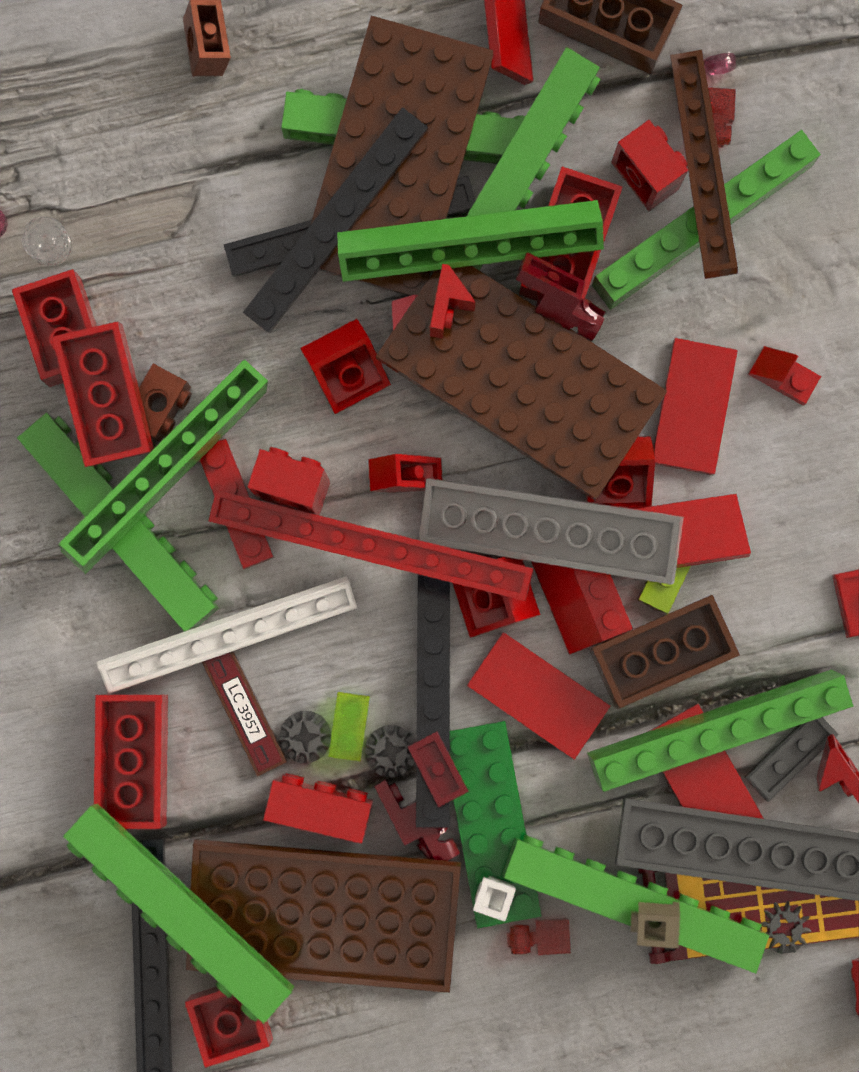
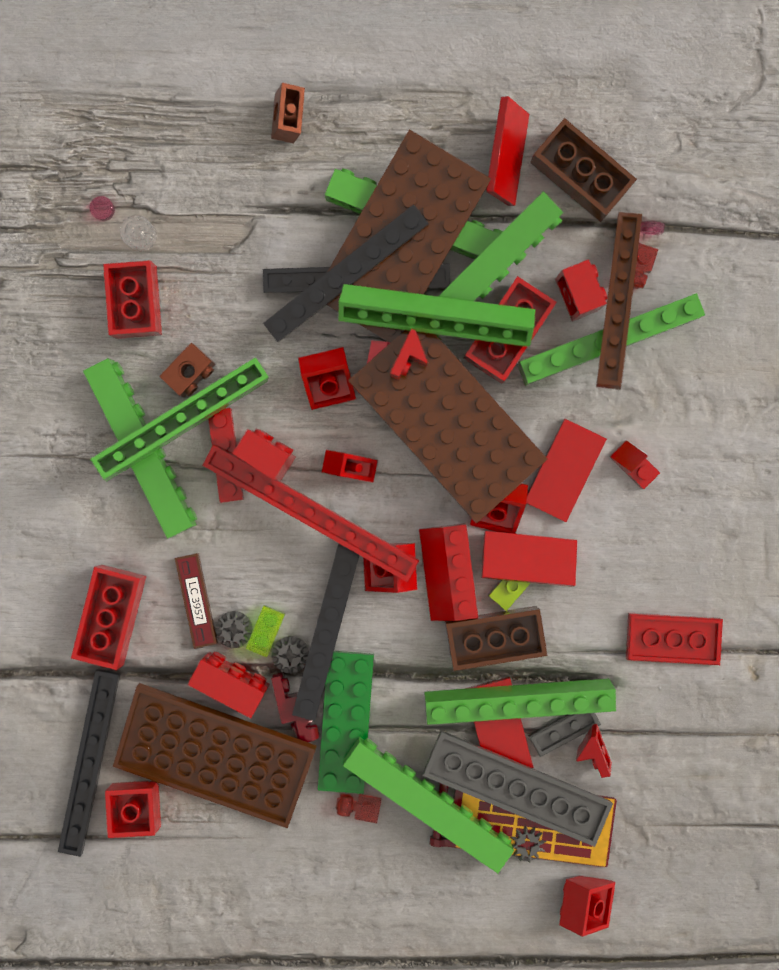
camera: 15 degrees right, 5 degrees up
(103, 394) = (148, 358): red brick -> none
(179, 913) = (114, 732): bright green brick -> none
(226, 635) = (196, 547): white tile -> none
(437, 769) = (316, 681): dark red plate -> none
(494, 897) = (333, 777): white brick -> none
(538, 695) = (401, 643): red tile -> none
(552, 530) = (439, 536): light grey plate -> none
(560, 296) = (490, 372): dark red plate -> none
(660, 933) = (438, 826): dark tan brick -> none

